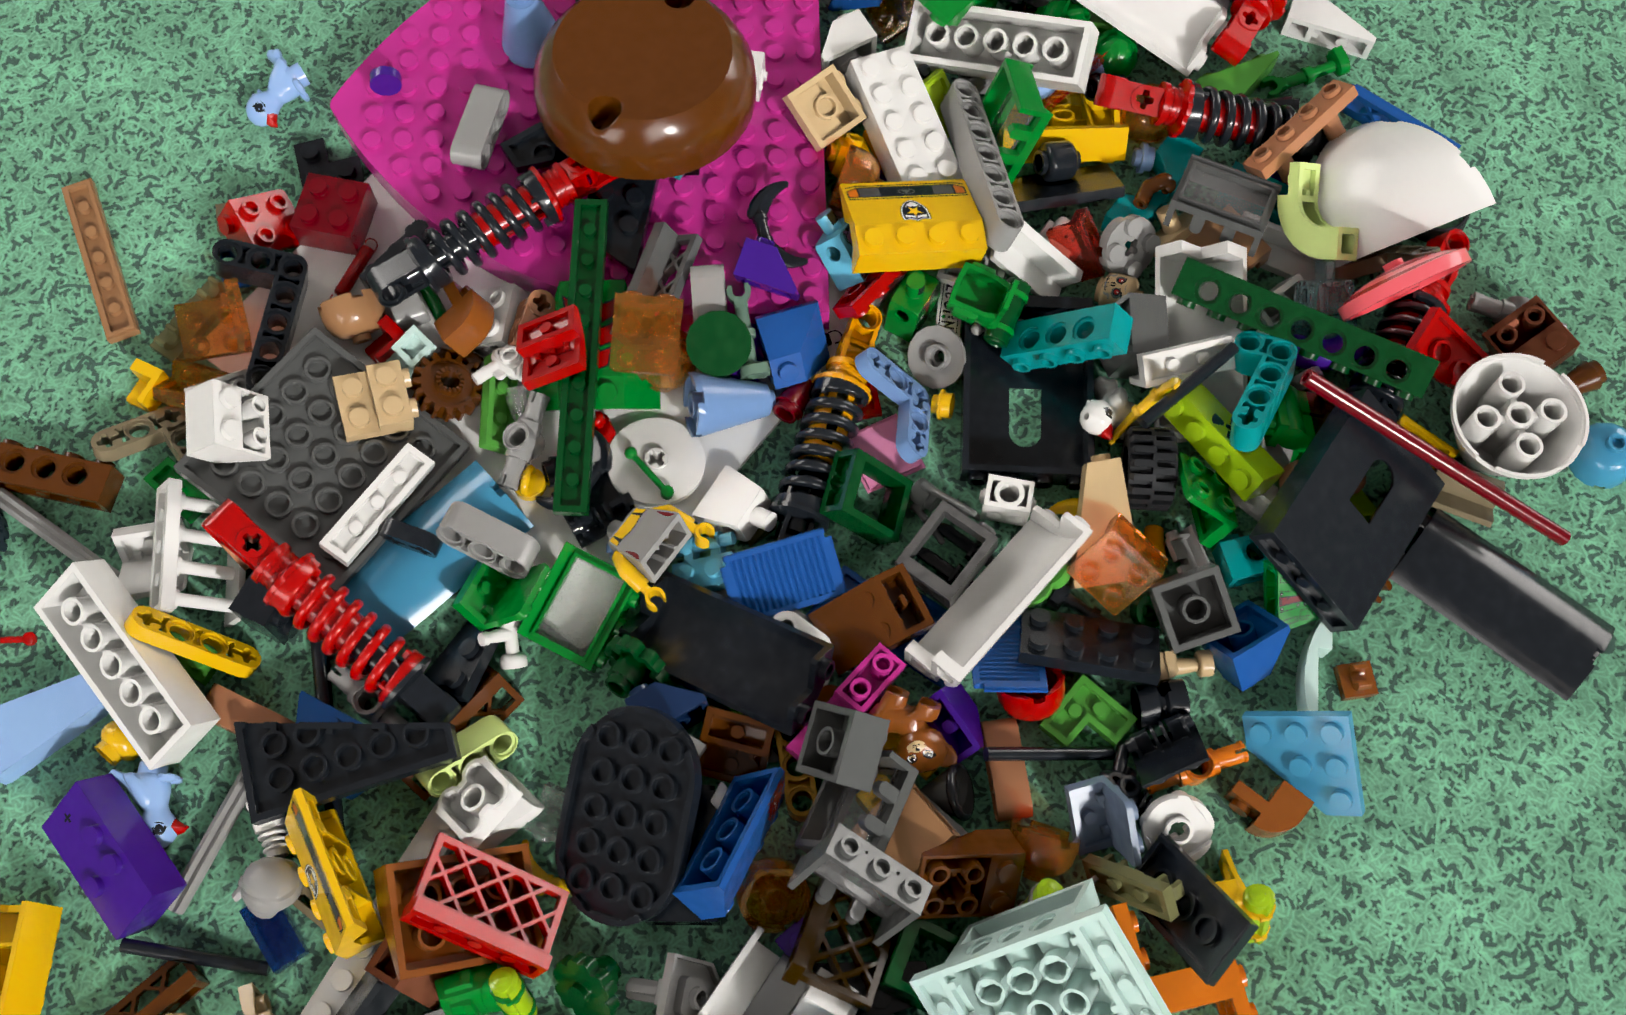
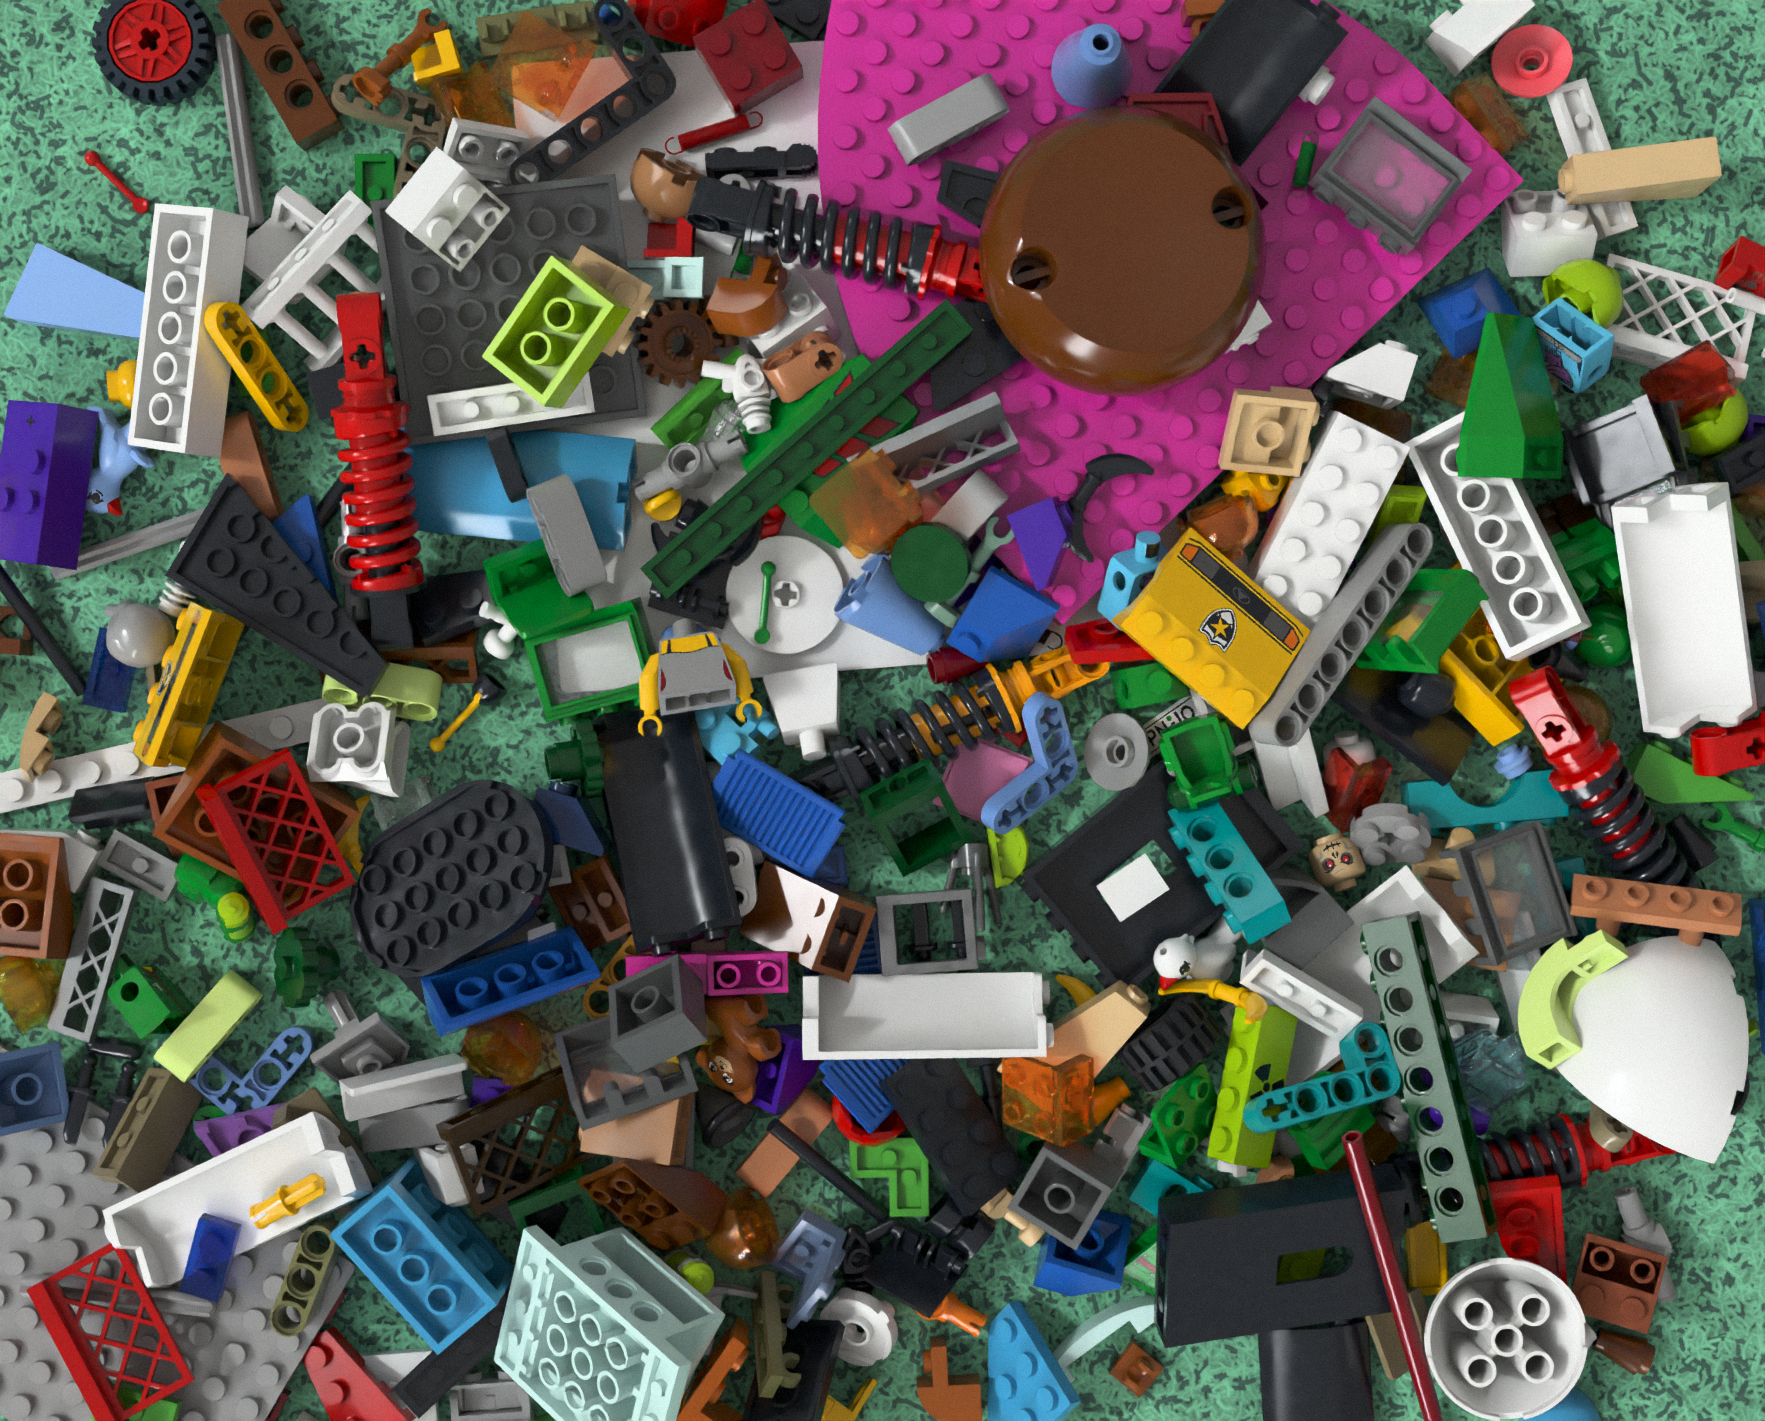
camera: 50 degrees right, 20 degrees up
(116, 421) = (374, 82): none -> dark orange piece
(363, 424) = (556, 332): none -> lime brick
(535, 697) = (486, 692): none -> hinge
(551, 347) = (784, 421): red slope -> none
(867, 877) = (577, 1167): dark grey window -> none
(938, 470) = (1008, 854): none -> lime tile
(943, 404) = (1077, 796): yellow plate -> none
(1007, 500) = (1040, 952): white head -> none
(1029, 413) = (1132, 887): none -> white sticker
(1152, 185) = (1476, 803): reddish brown arm -> none
(1188, 385) = (1274, 1021): black bar -> none
(1402, 279) = (1544, 1145): coral dish -> none

